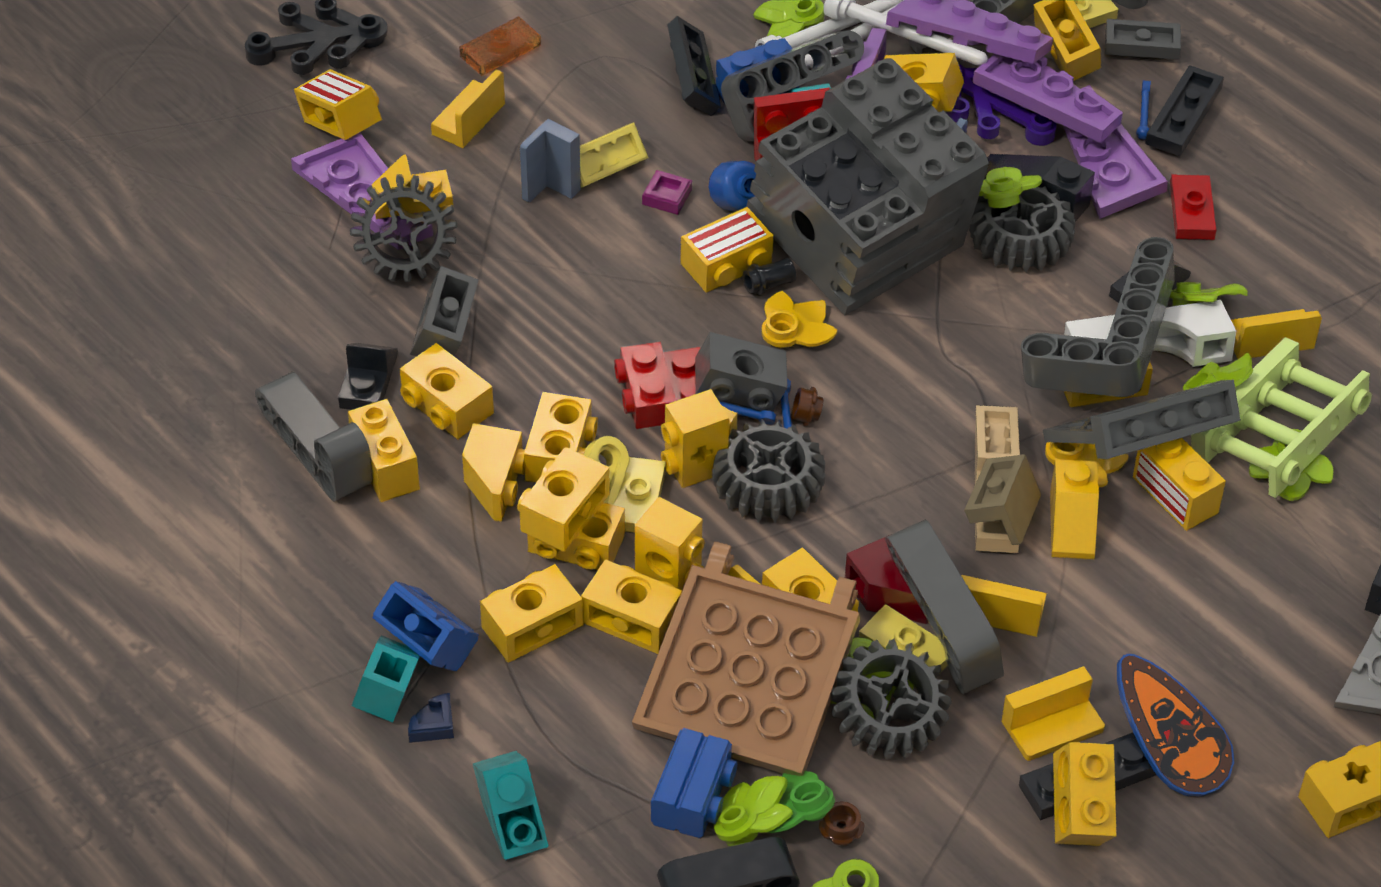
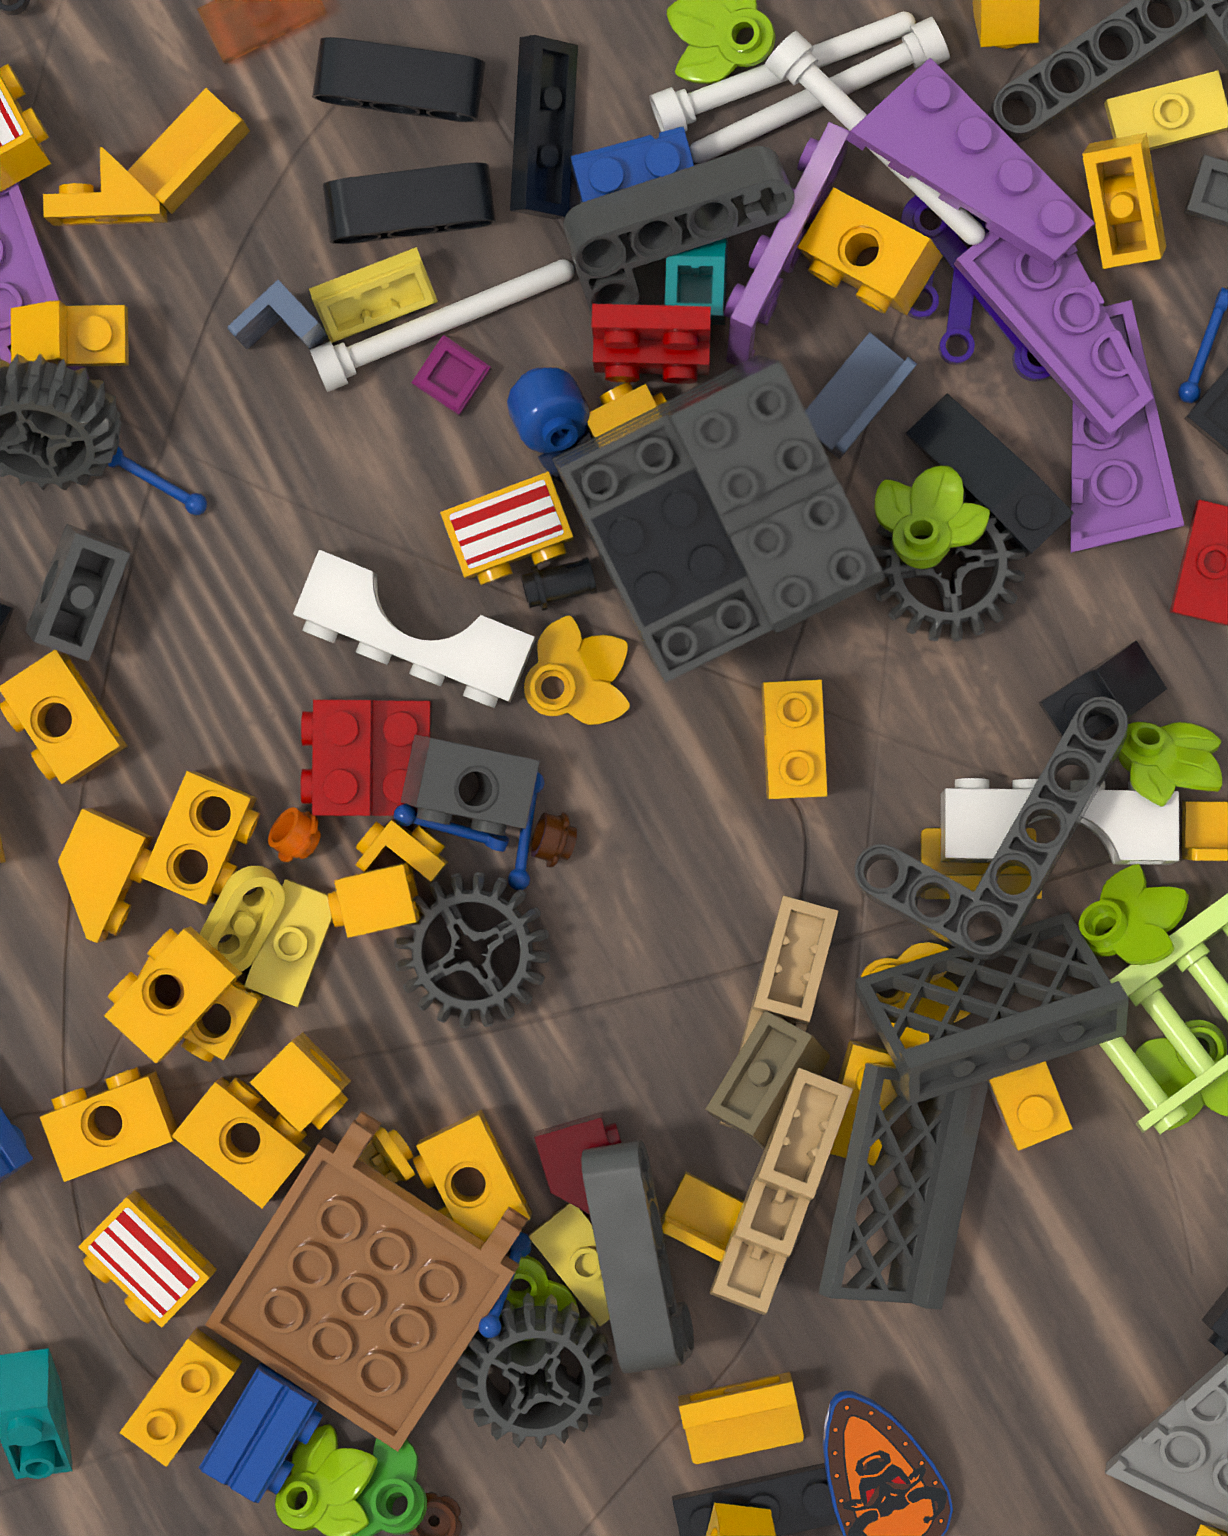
camera: 15 degrees right, 40 degrees up
(426, 137) = (119, 202): none -> yellow slope
(512, 278) = (194, 503): none -> blue hinge
(578, 688) = (146, 1260): none -> brick
(589, 192) = (339, 361): none -> white piece
(595, 58) = (398, 79): none -> black beam
(613, 107) = (409, 203): none -> black beam
(625, 767) = (181, 1397): none -> yellow brick
(626, 429) = (294, 834): none -> orange plate
(633, 306) = (346, 601): none -> white arch
(850, 650) = (490, 1324): none -> blue hinge
(954, 323) = (794, 739): none -> yellow brick
(1035, 543) = (781, 1191): none -> tan slope
(1137, 528) = (930, 1193): none -> dark grey fence

